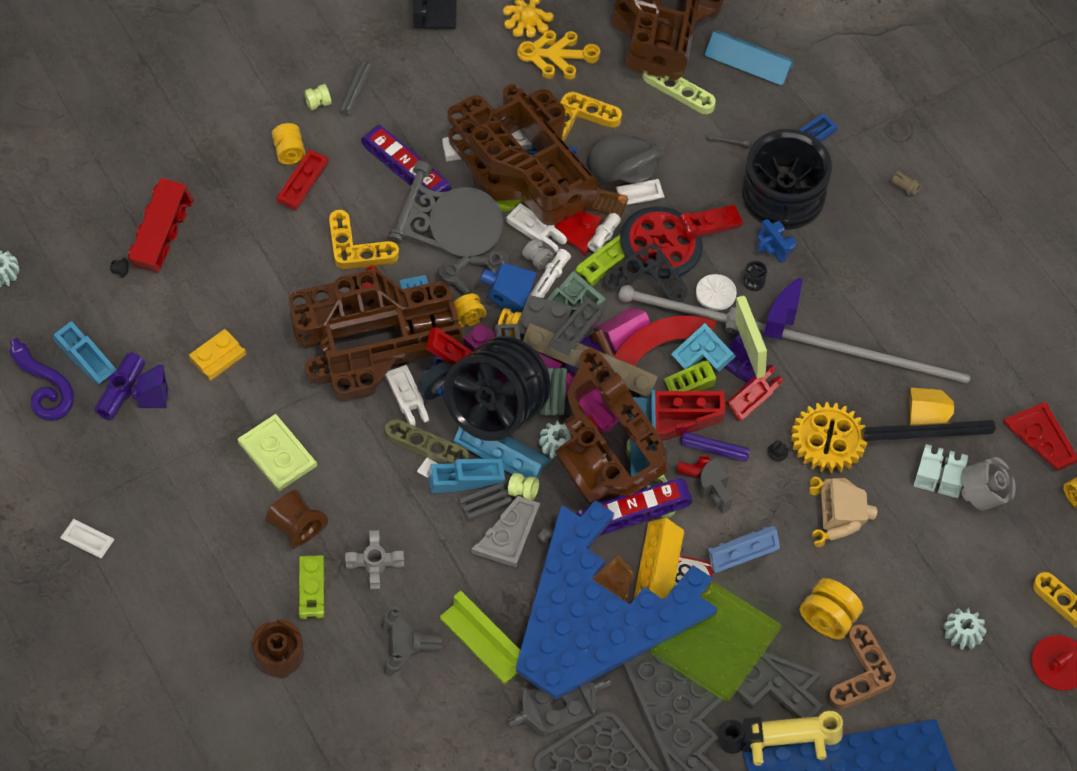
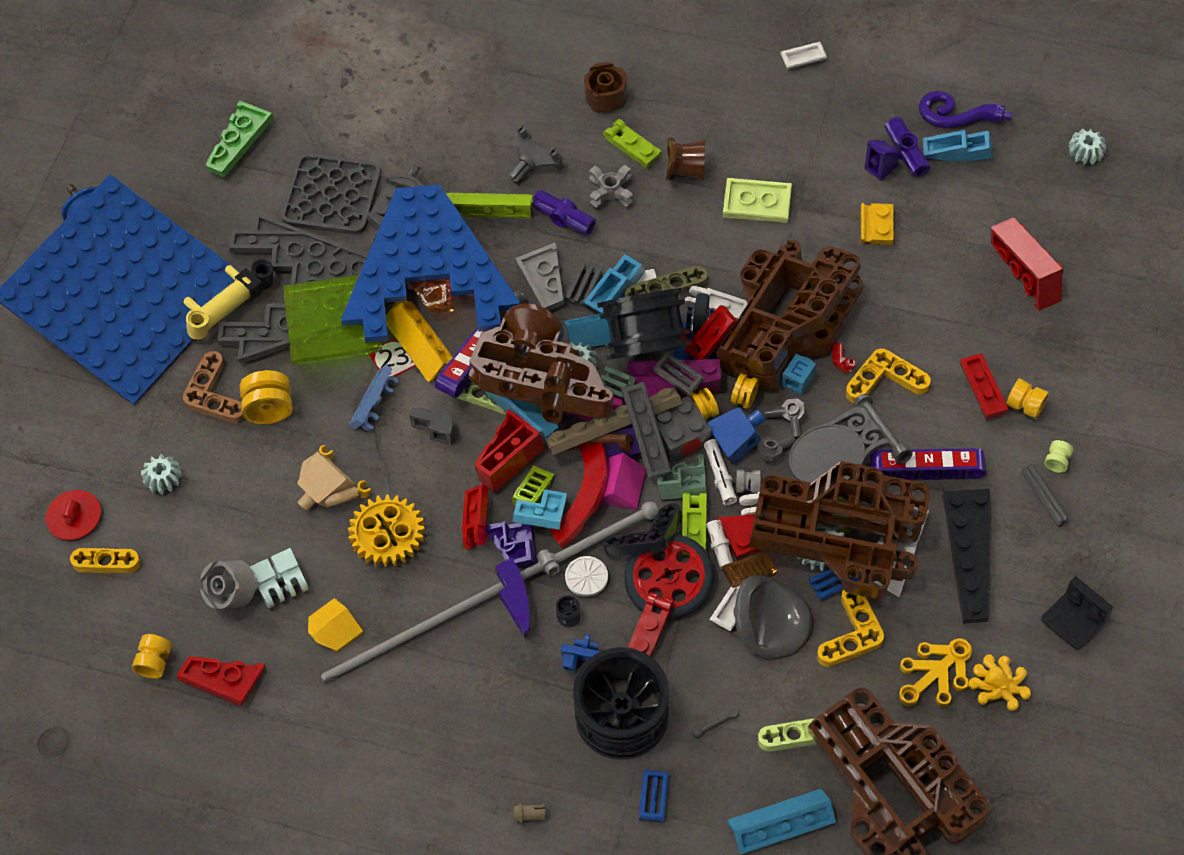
camera: 140 degrees right, 0 degrees up
(120, 267) = (1019, 216): black piece -> none
(429, 111) = (968, 532): none -> black wing
(435, 572) = (563, 212): none -> dark purple piece
(523, 486) = (566, 309): yellowish green wheel -> none
(693, 470) = (462, 428): red arm -> none
(715, 446) = (460, 458): dark purple axle -> none
(751, 336) = (508, 526): yellowish green tile -> none
(778, 451) = (416, 493): black piece -> none
(928, 430) = (313, 598): black axle -> none

